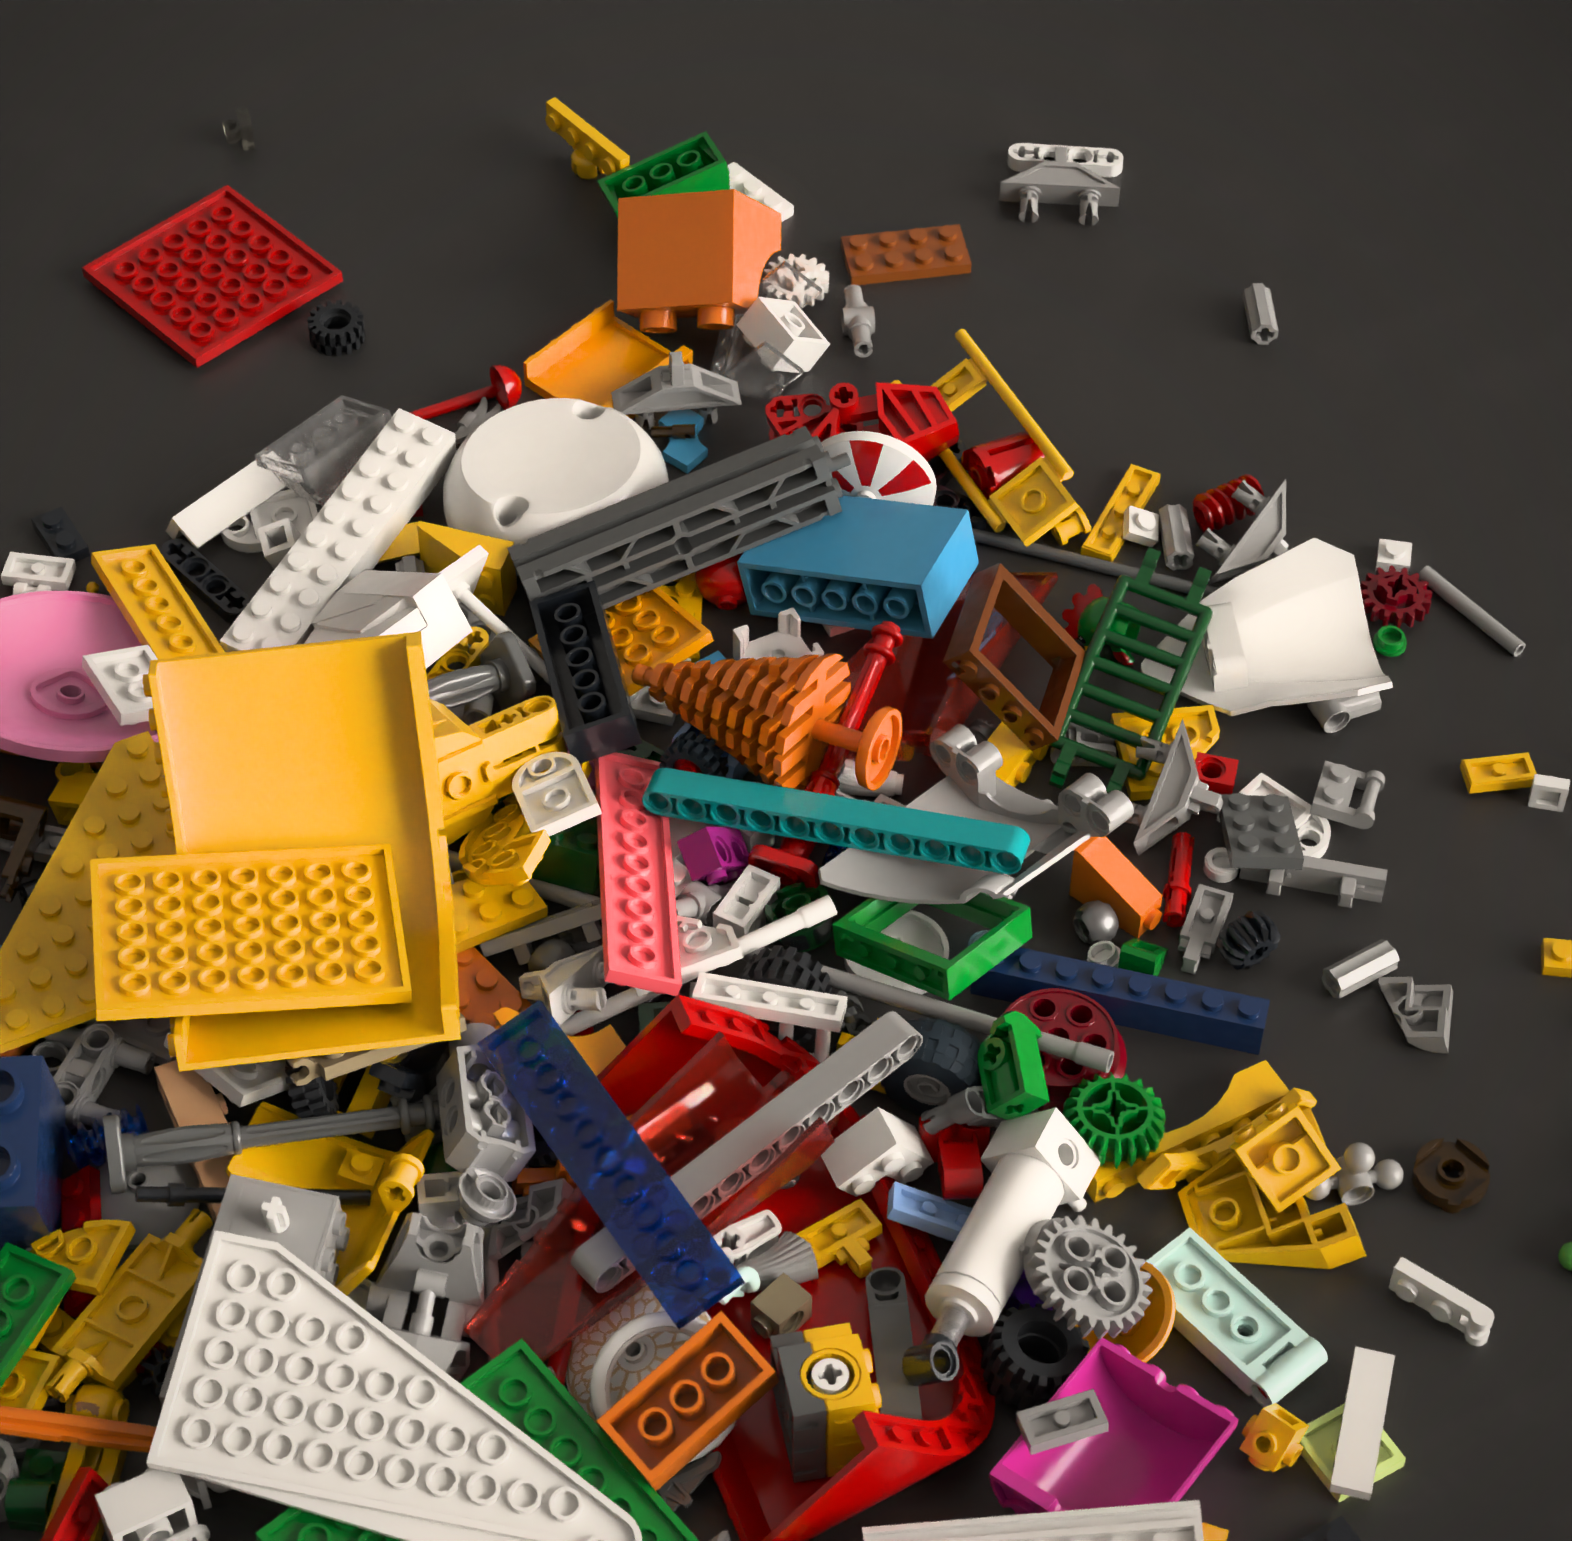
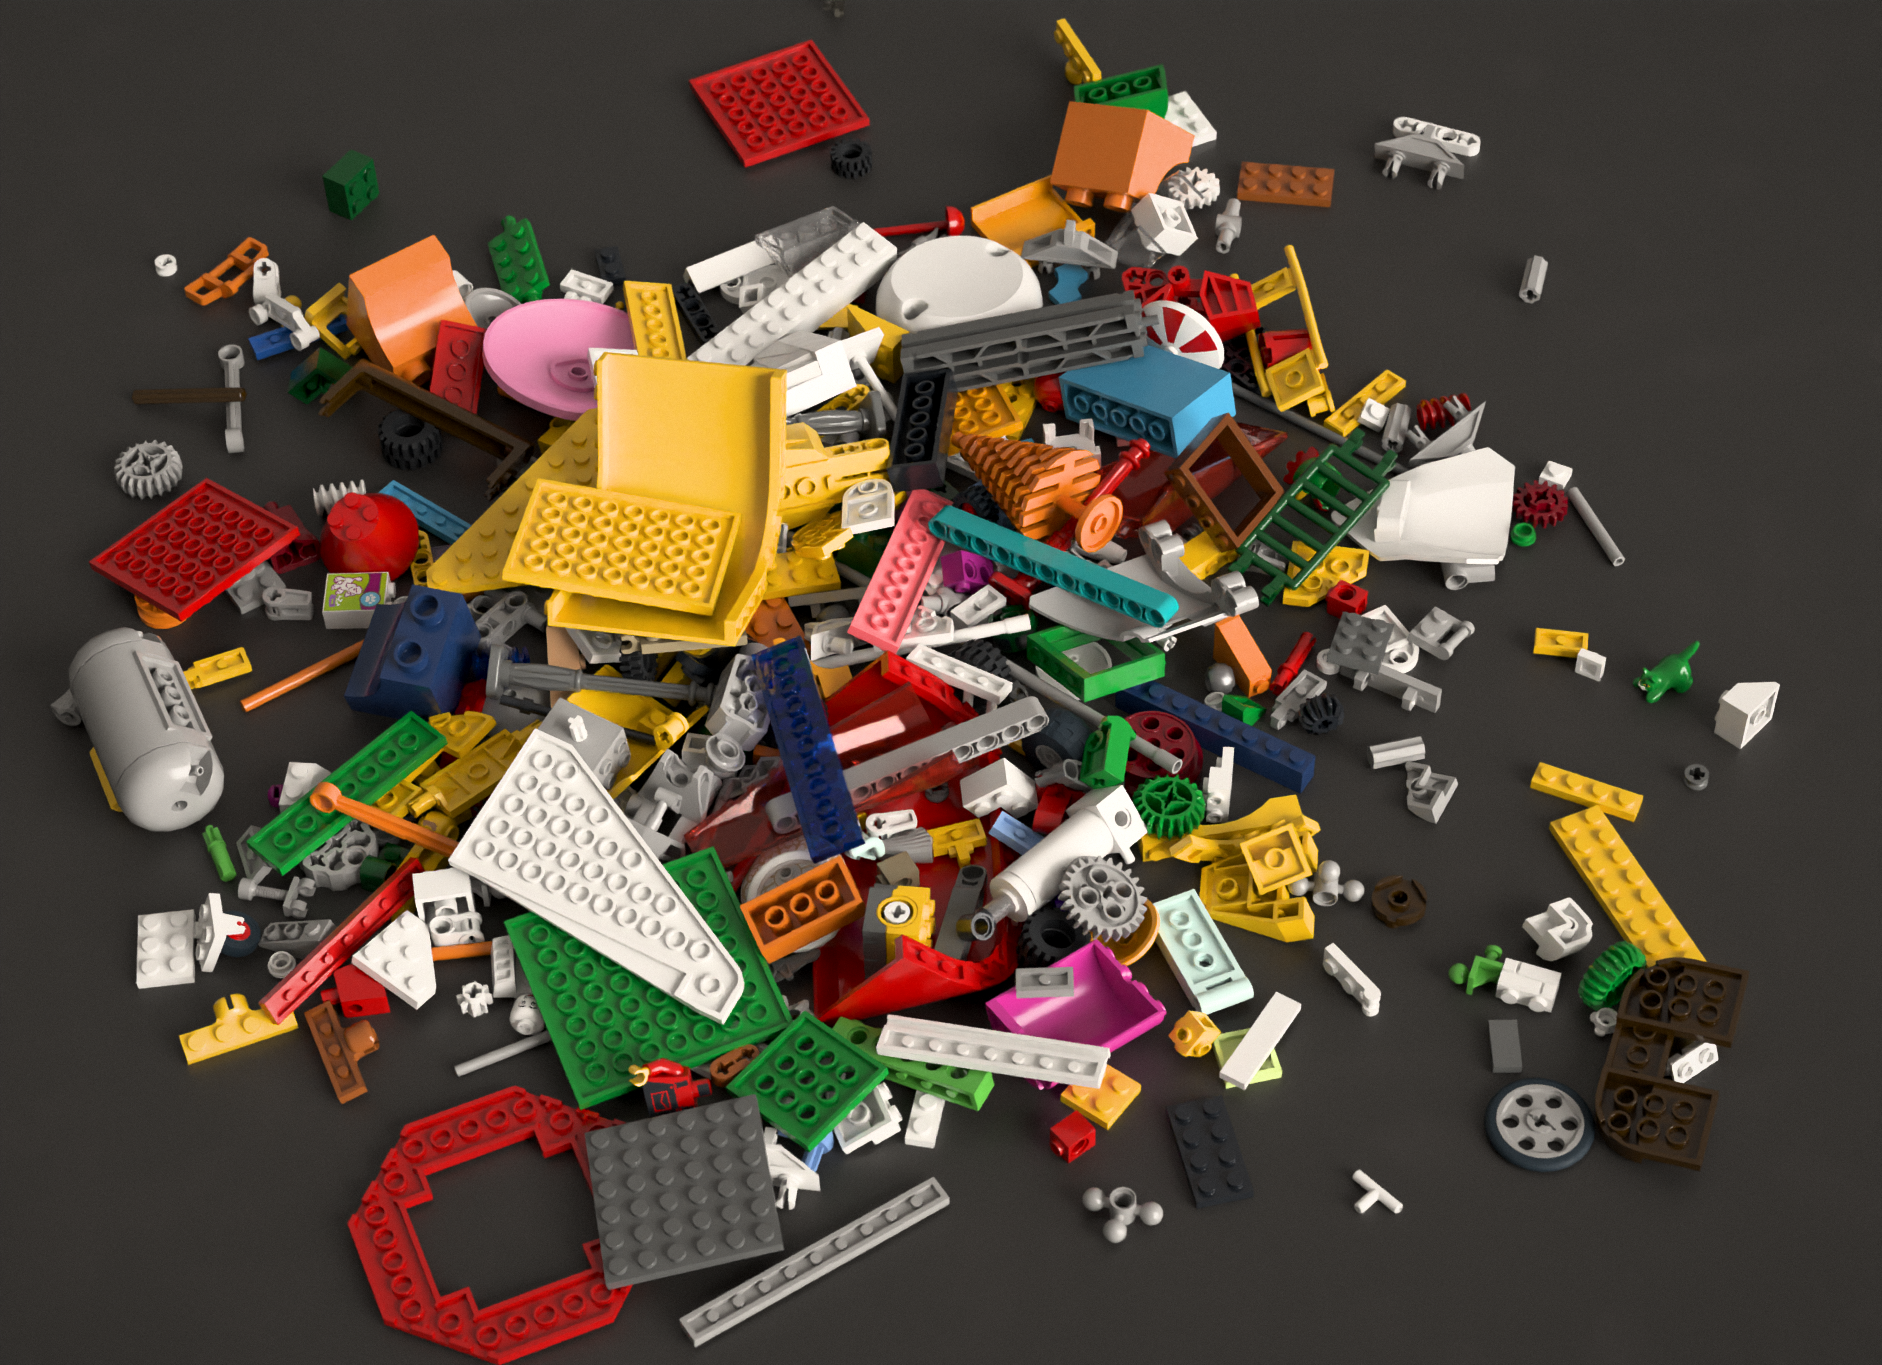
camera: 20 degrees right, 0 degrees up
(677, 431) = (1063, 279): dark brown pin -> none
(1167, 1070) = (1219, 788): none -> white plate
(1175, 794) = (1310, 603): light grey connector -> none

